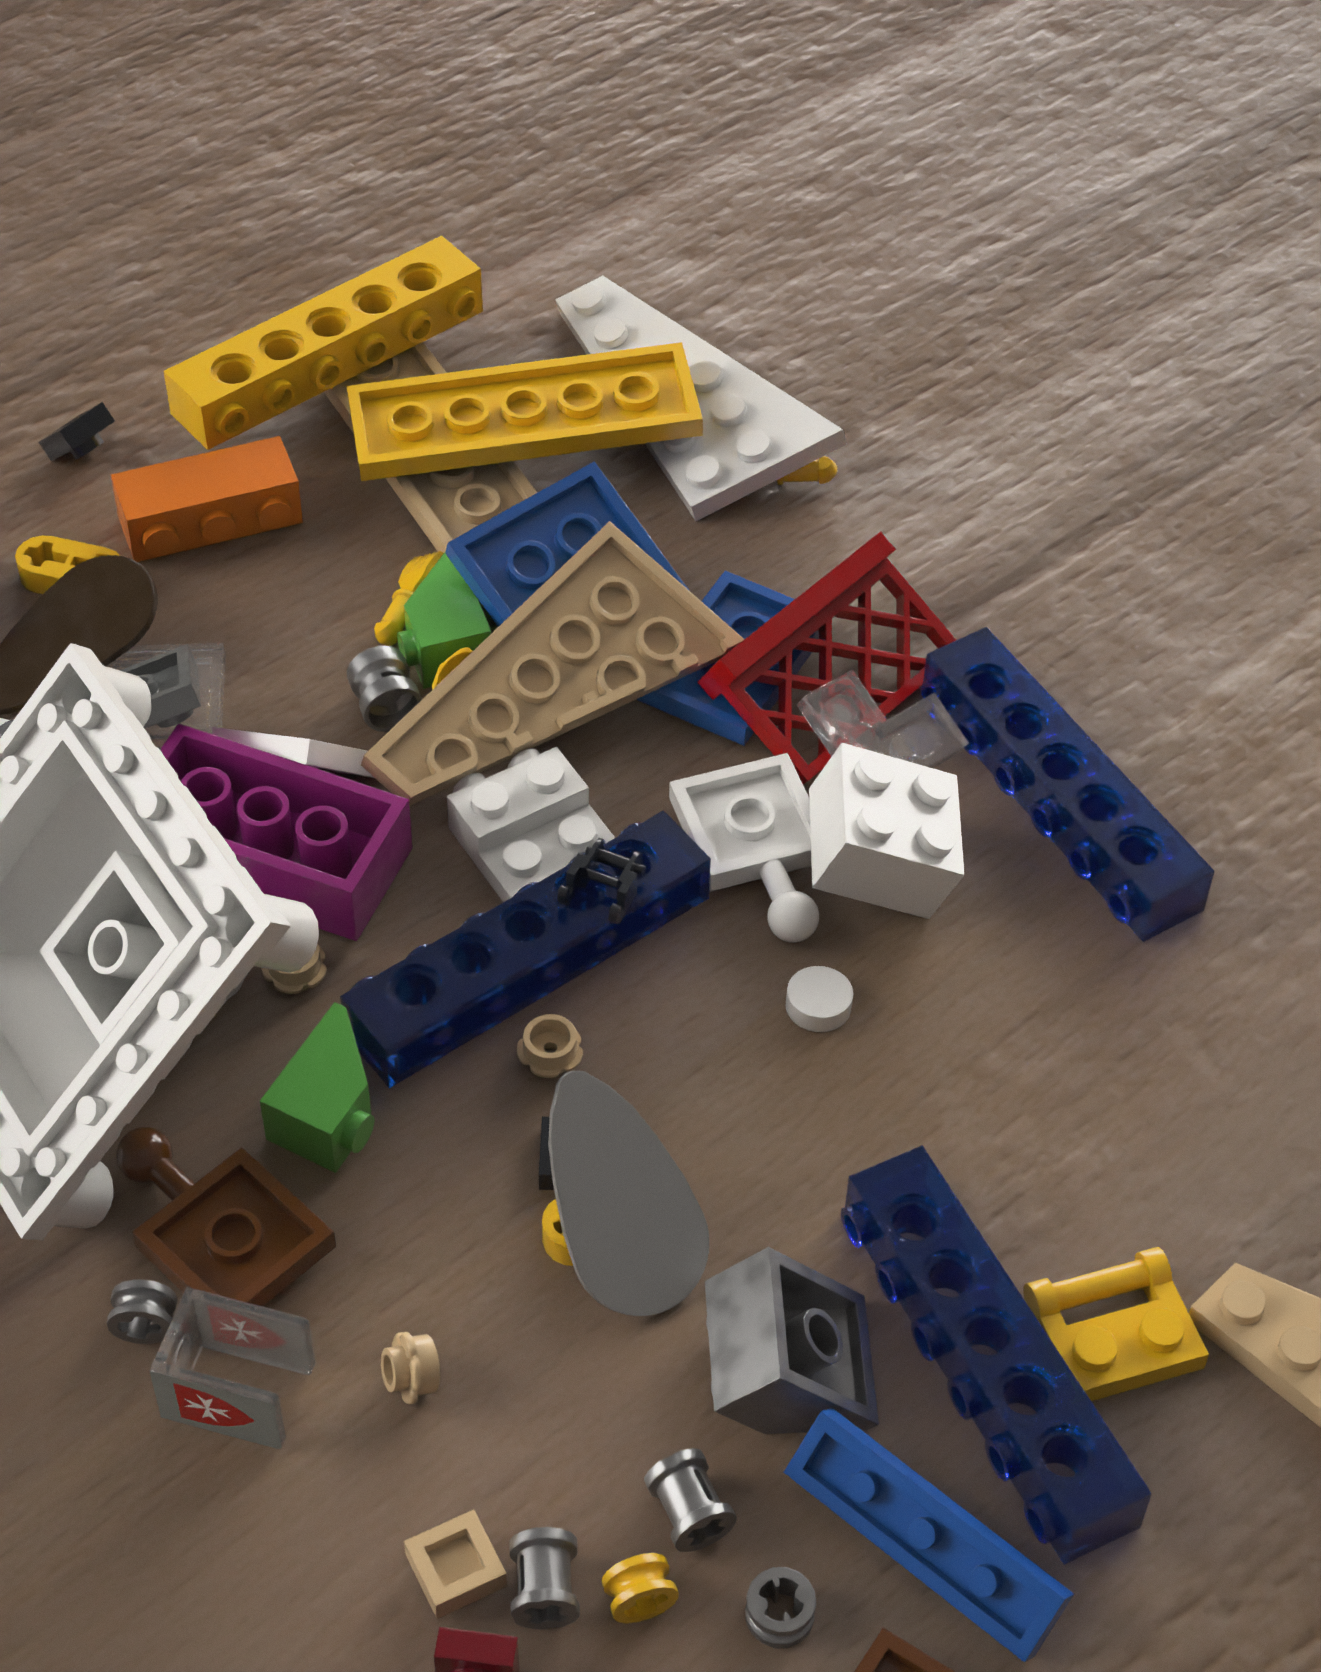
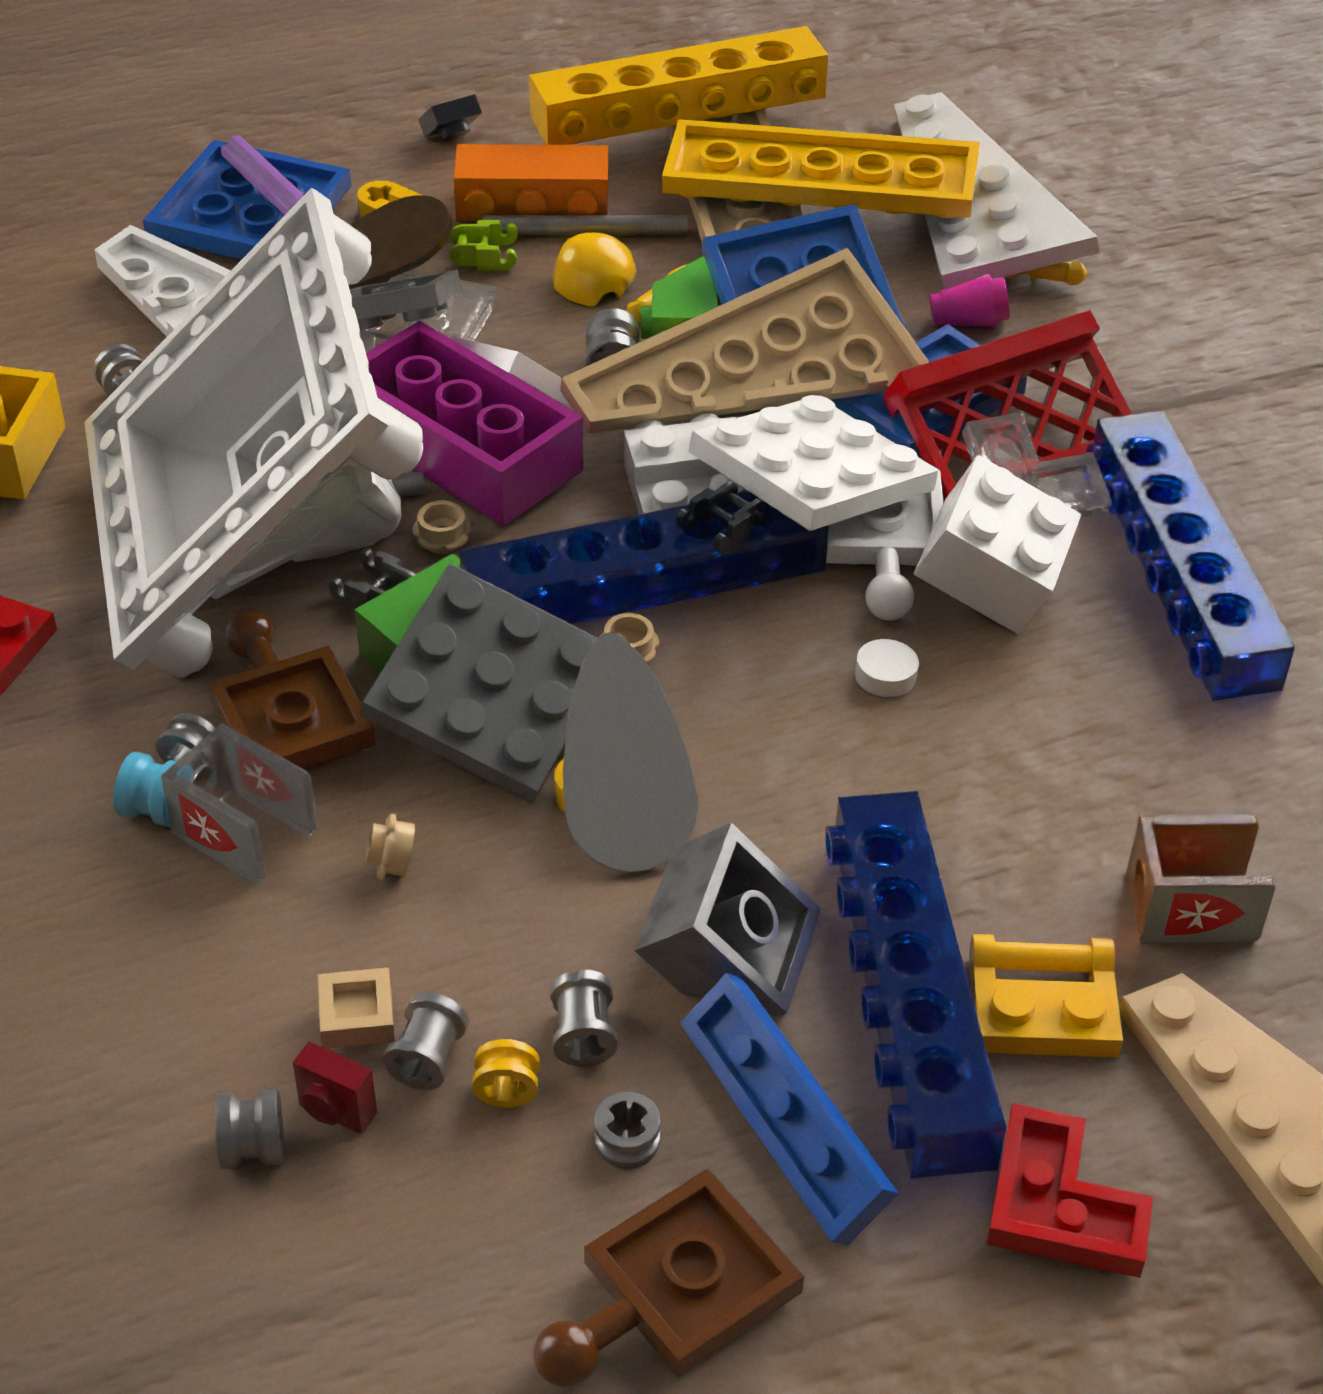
camera: 20 degrees right, 5 degrees down
(123, 1377) = (140, 788): none -> medium azure wheel
(186, 603) = (474, 245): none -> lime piece
(250, 1070) = (383, 566): none -> flat silver piece
(282, 535) = (608, 224): none -> flat silver bar
(318, 592) = (592, 267): none -> yellow hair
(436, 1144) = (482, 682): none -> dark grey plate
(664, 785) = (813, 461): none -> white plate
(736, 535) = (972, 303): none -> dark pink cone
(1216, 1562) = (1053, 1214): none -> red plate
(1220, 1192) = (1192, 879): none -> piece

